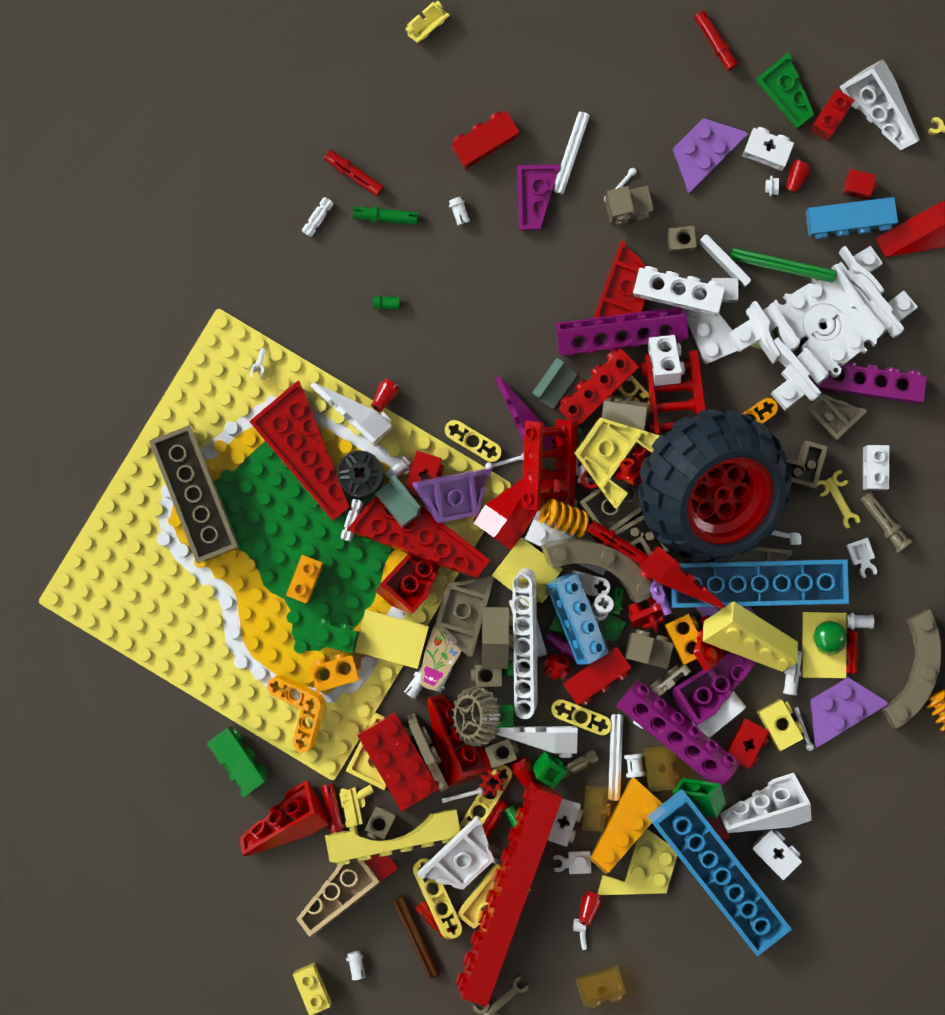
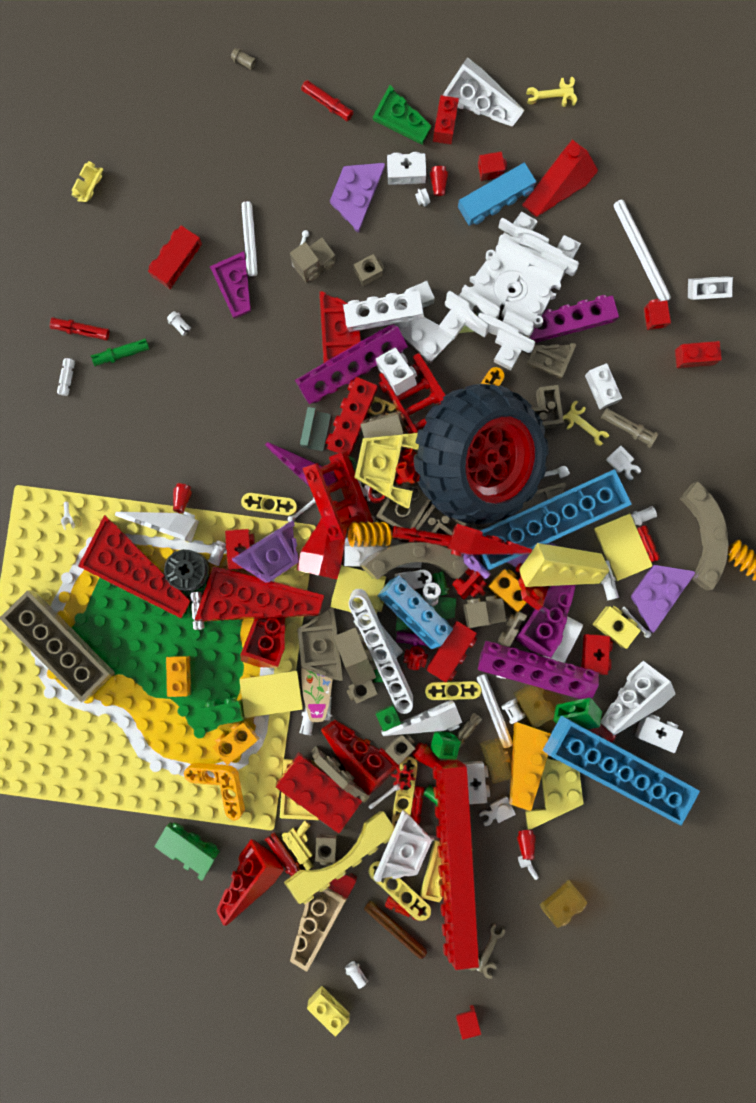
camera: 30 degrees left, 0 degrees up
(385, 302) = (150, 422): green pin -> none
(399, 501) = (228, 579): sand green panel -> none
(476, 716) = (367, 728): dark tan gear -> none
(724, 261) = (409, 272): white tile -> none
(783, 265) = (458, 255): green axle -> none
(830, 638) = (626, 539): green hair -> none

